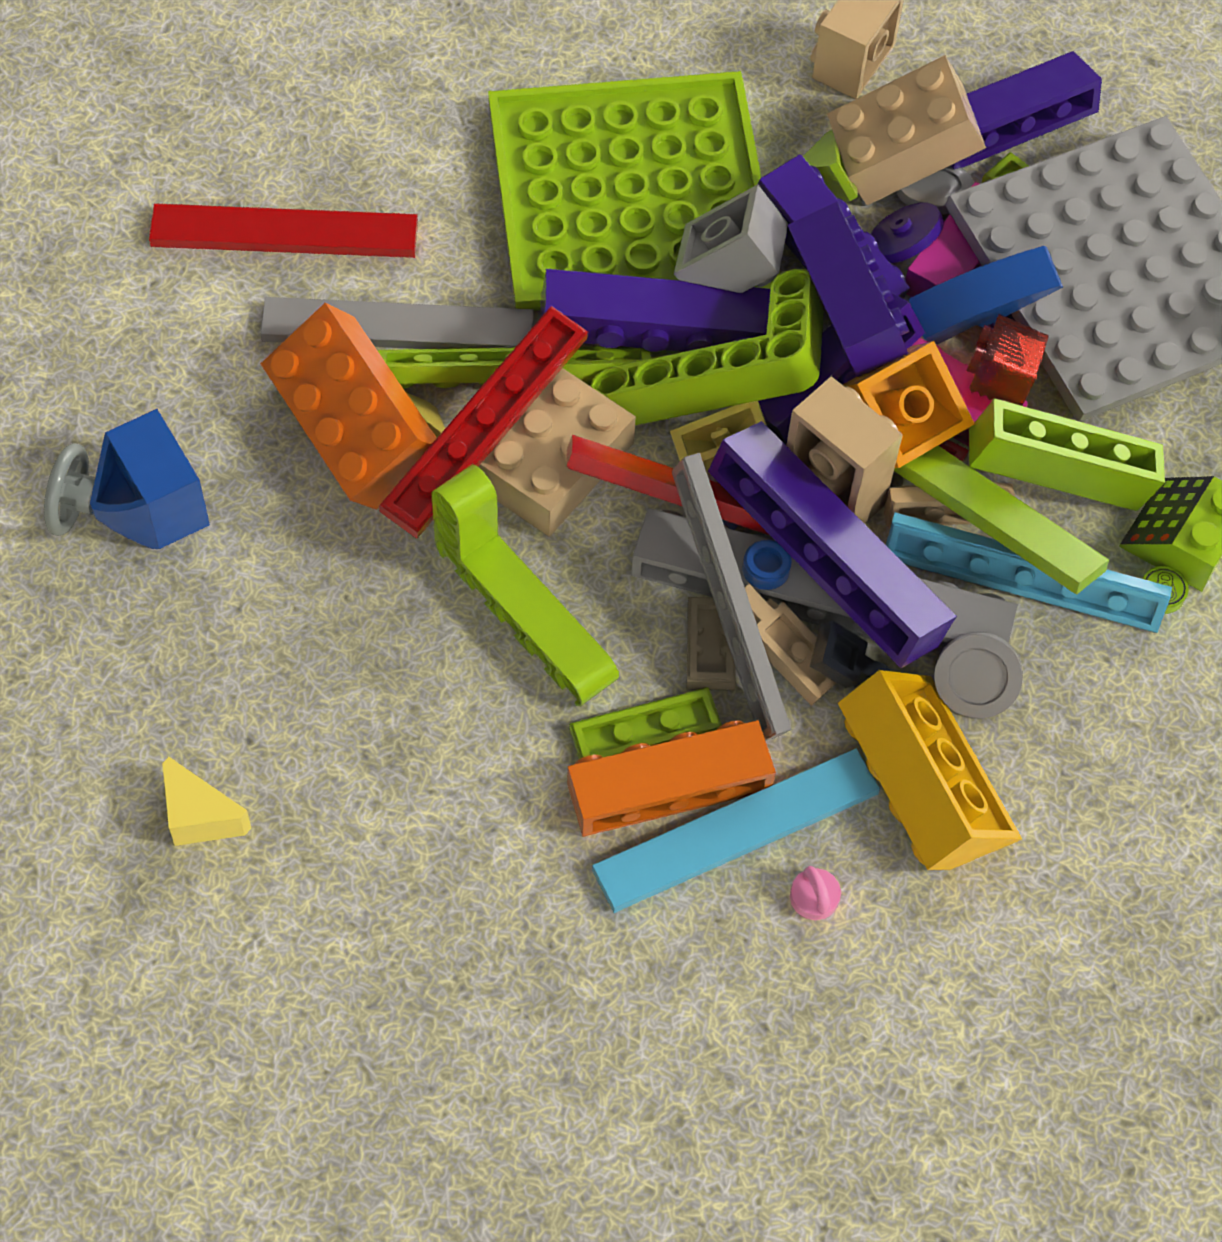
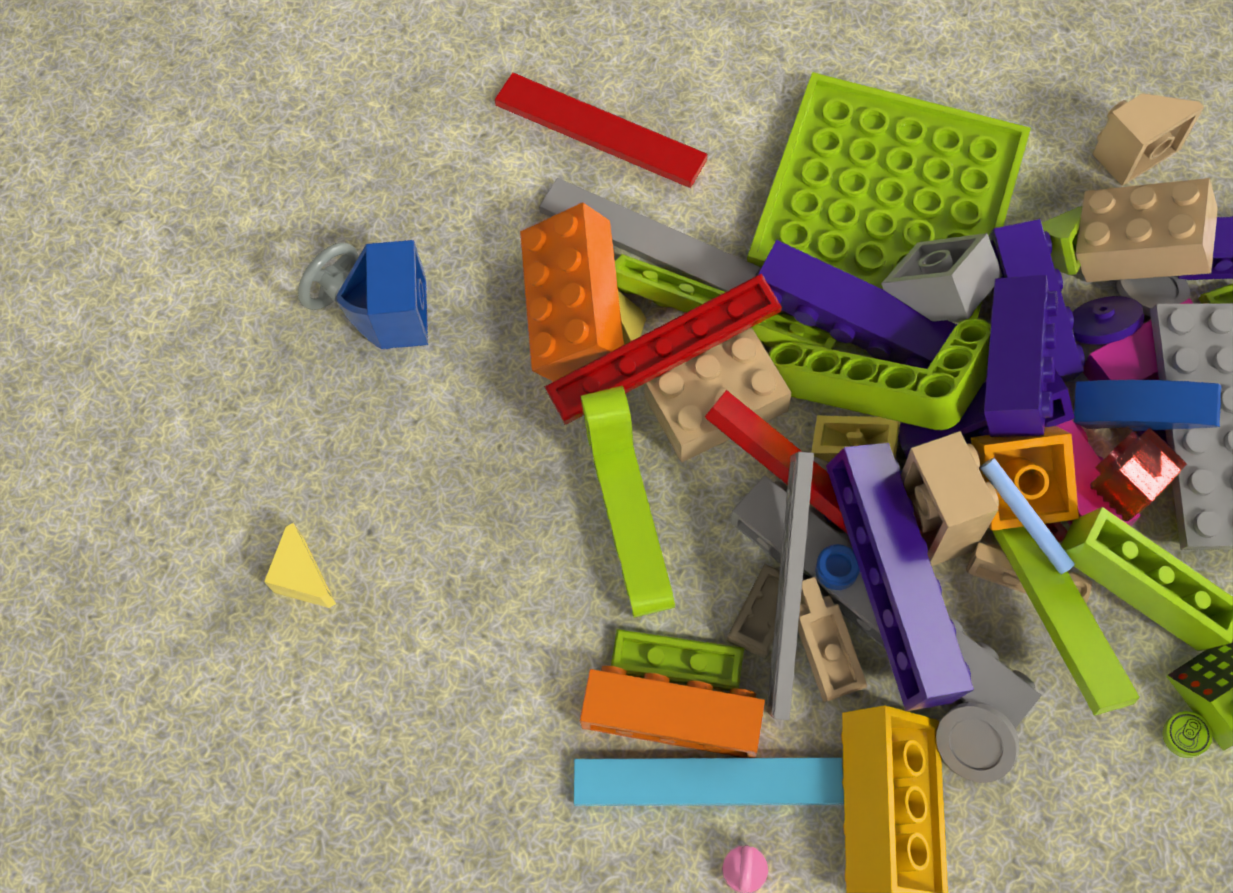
camera: 35 degrees right, 5 degrees up
(842, 656) = (865, 676): black plate -> none
(929, 437) = (1027, 516): none -> light blue bar
(993, 565) = (1028, 637): medium azure tile -> none

